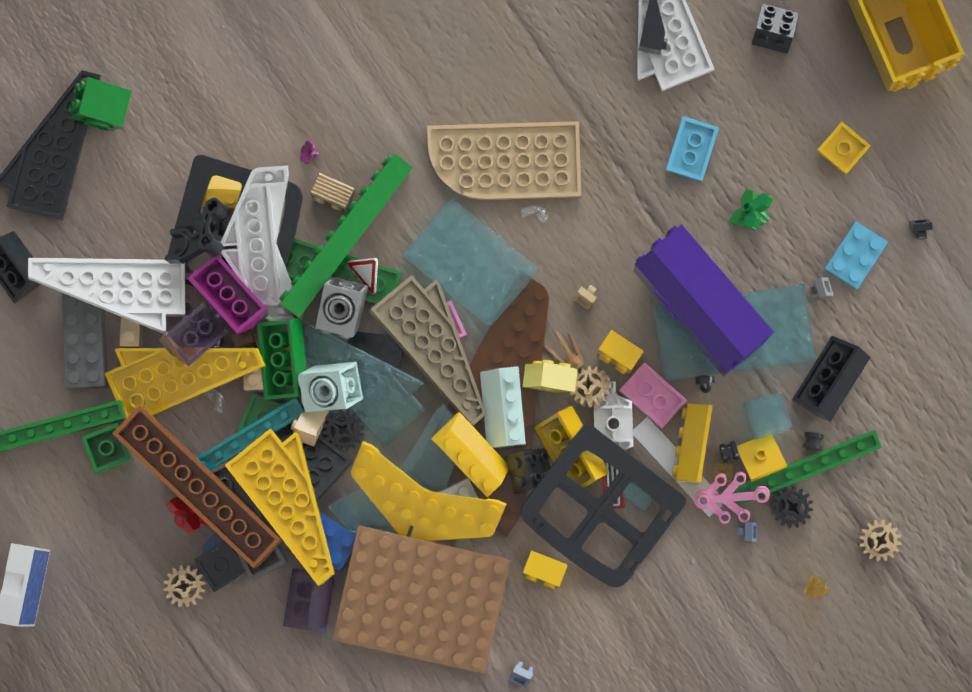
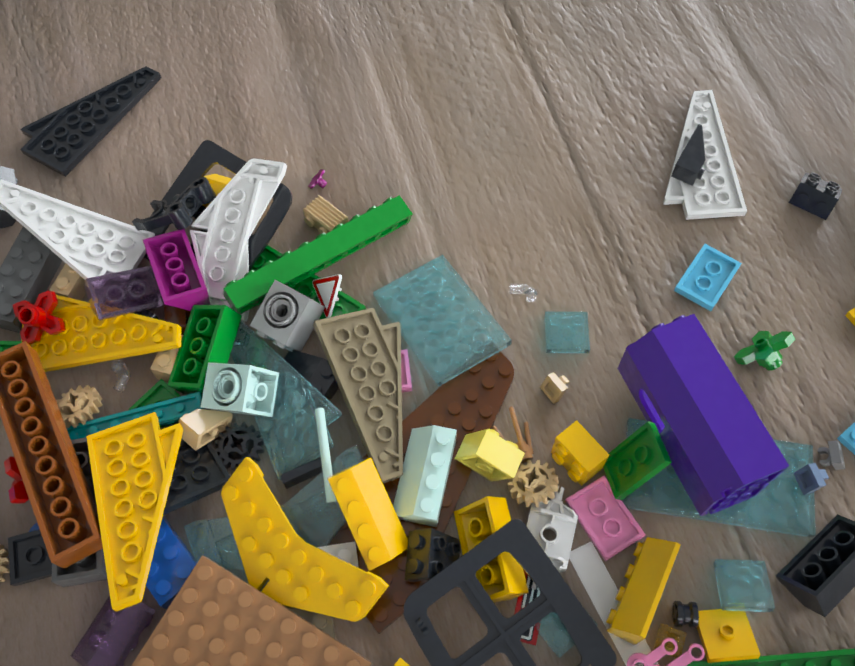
camera: 15 degrees right, 20 degrees down
(100, 104) = (143, 86): green brick -> none
(126, 375) = (38, 317): none -> red plant
(201, 432) = (79, 405): none -> tan gear
(405, 434) = (302, 473): none -> black tile
(421, 419) = (324, 453): none -> light aqua bar
(508, 159) = (512, 237): tan plate -> none
(582, 240) = (566, 332): none -> clear light blue plate
(665, 347) = (636, 461): none -> green plate
(705, 380) = (672, 517): black tile -> none
(804, 317) = (810, 478): none -> sand blue tile
(813, 441) = (797, 635): black wheel -> none

